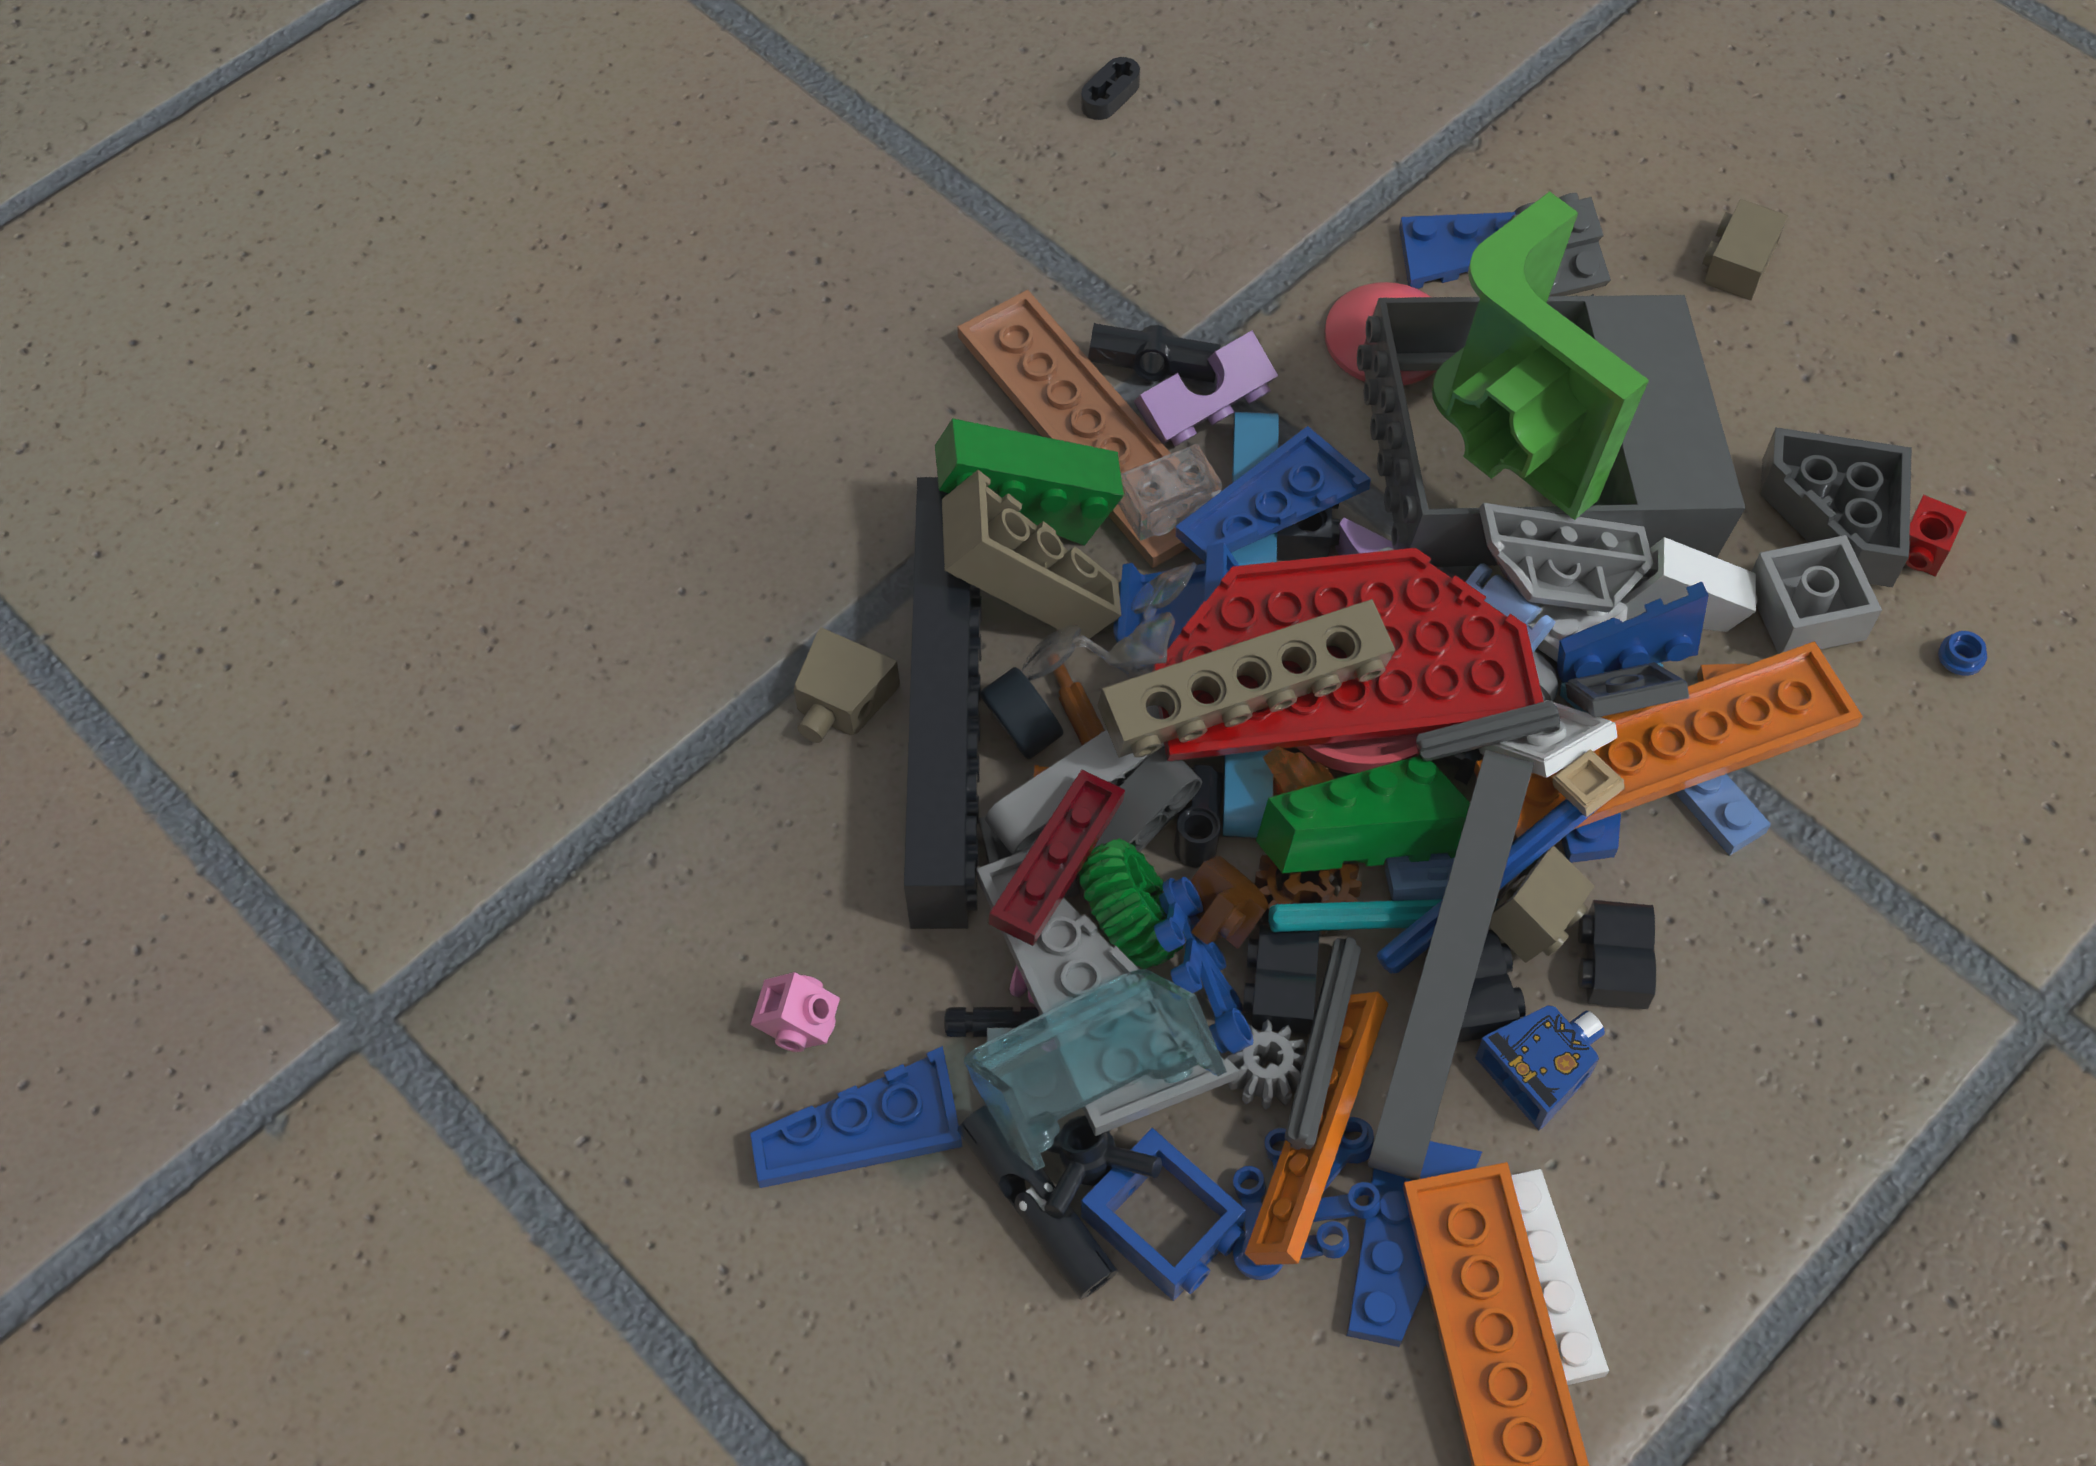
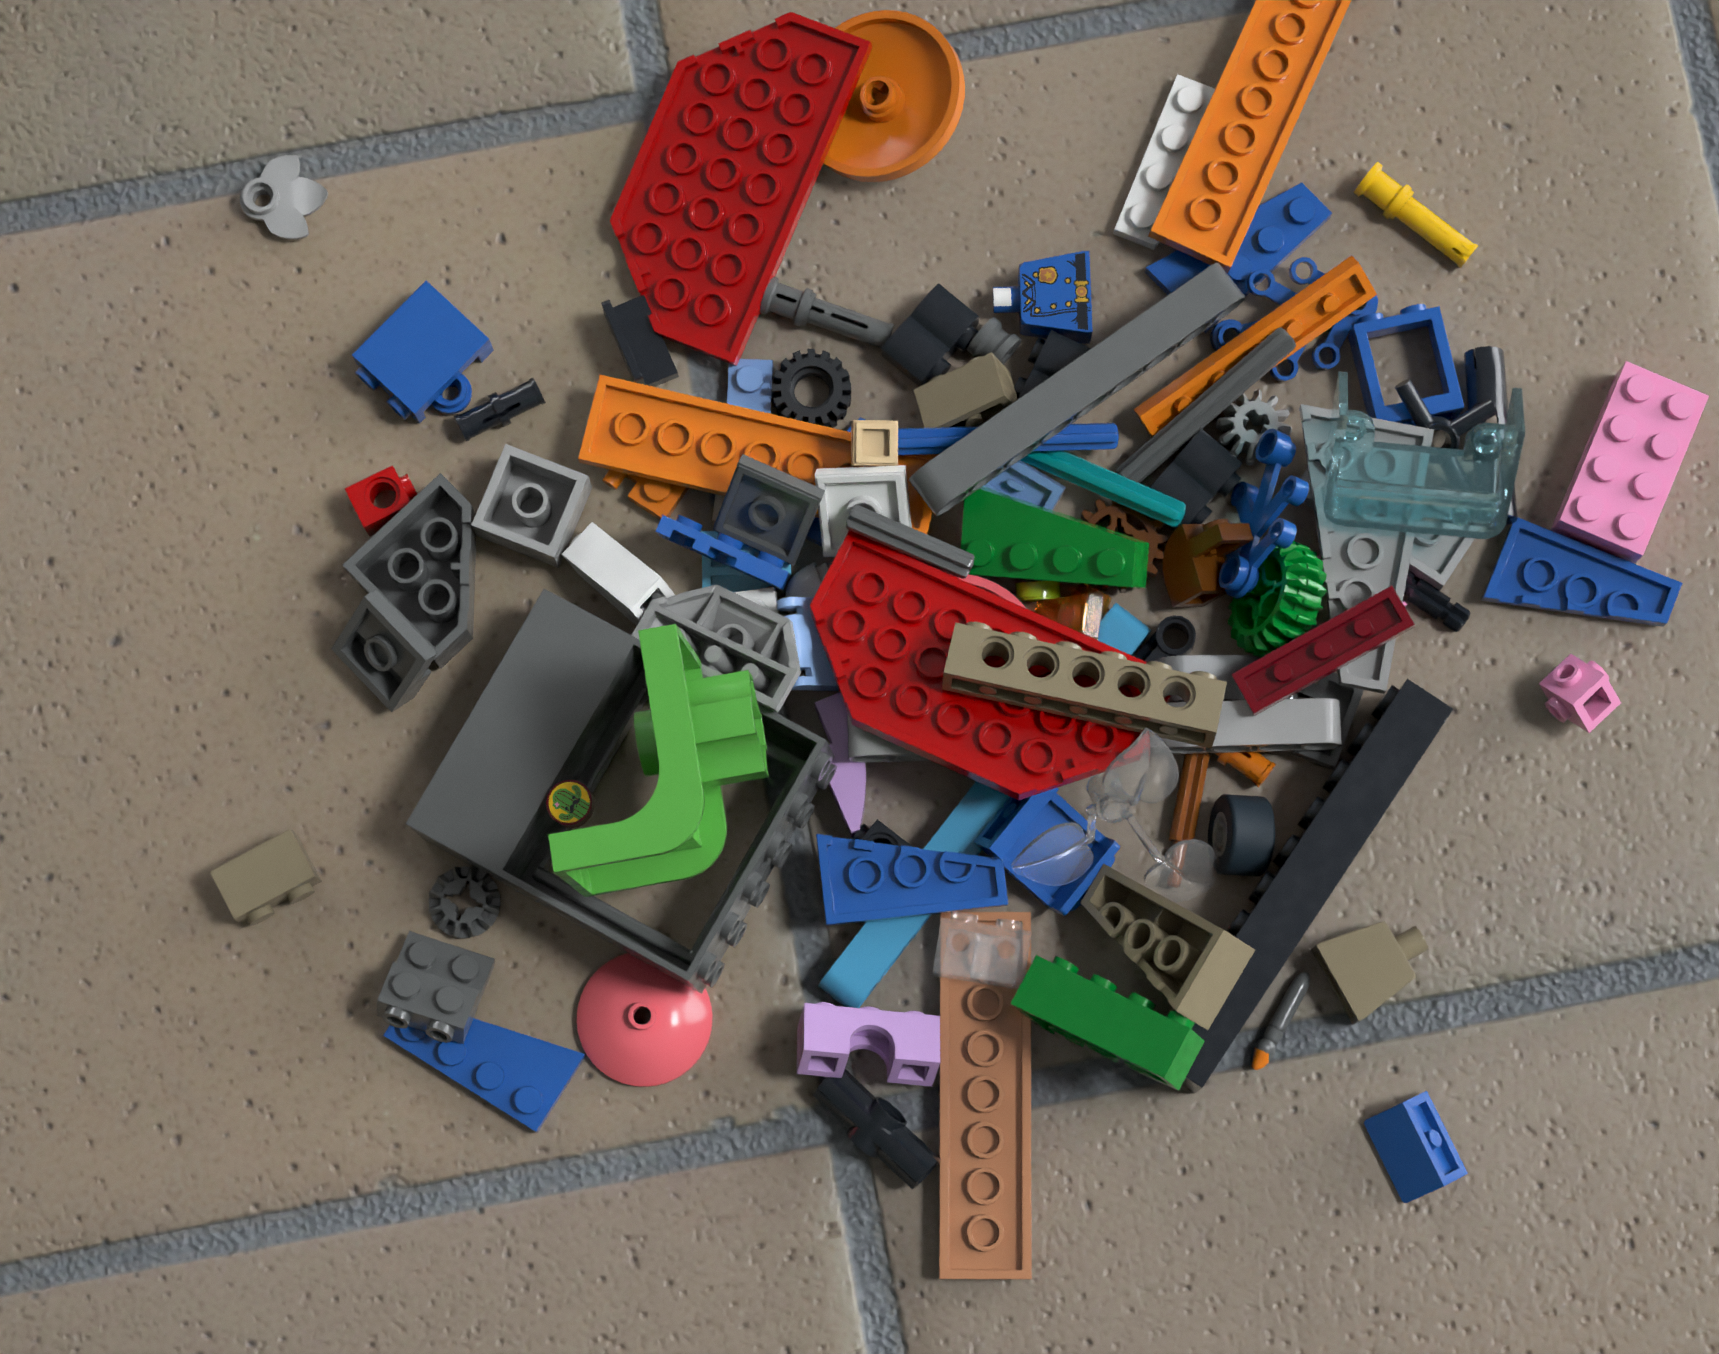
camera: 145 degrees left, 20 degrees up
(707, 587) = (1415, 1147): none -> blue panel
(881, 1265) = (1629, 462): none -> bright pink brick
(886, 588) = (1266, 1047): none -> dark grey piece
(1287, 1386) = (1399, 203): none -> yellow pin
(1558, 983) = (995, 340): none -> dark grey wheel
(1688, 821) = (812, 365): none -> black tyre
(1745, 909) = (806, 308): none -> dark grey pin
(1815, 418) = (385, 651): none -> dark grey plate
(1858, 784) = (638, 343): none -> black panel
(1862, 1135) = (902, 102): none -> orange dish
(1911, 665) = (499, 409): none -> black pin
(1922, 978) = (732, 175): none -> red plate
(2018, 663) = (420, 352): none -> blue panel

